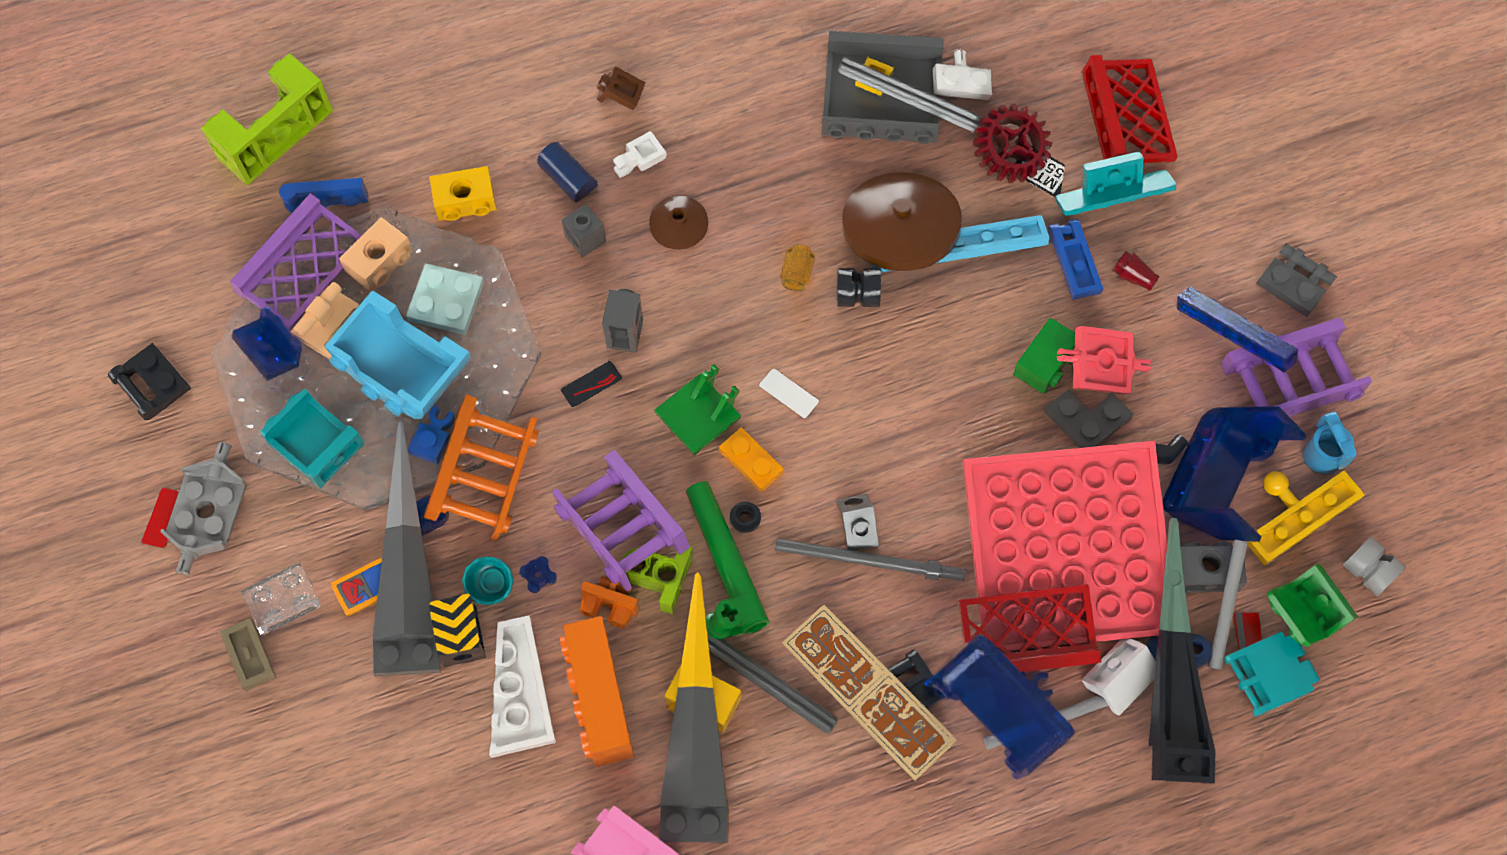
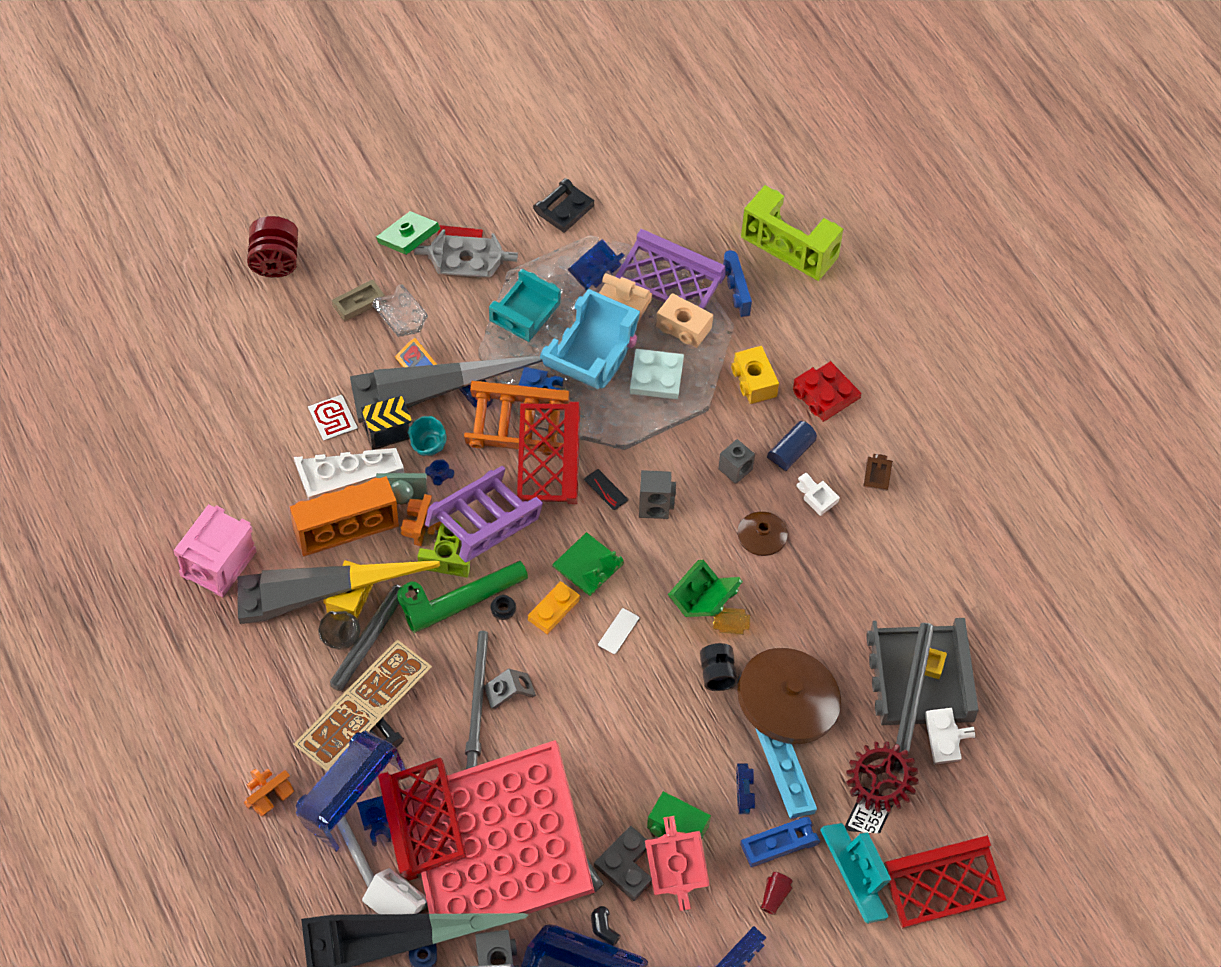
camera: 80 degrees right, 10 degrees down
(139, 759) = (272, 247): none -> dark red wheel
(152, 579) = (408, 232): none -> plate
(426, 705) = (332, 417): none -> white sticker
(497, 125) = (825, 390): none -> red plate
(550, 407) = (570, 452): none -> red fence
(557, 612) = (406, 485): none -> sand green tile
(760, 712) = (339, 630): none -> clear smoke hair
(762, 284) = (702, 592): none -> green bracket
(971, 819) = (278, 784): none -> orange hips
(1015, 285) = (744, 779): none -> clear blue plate

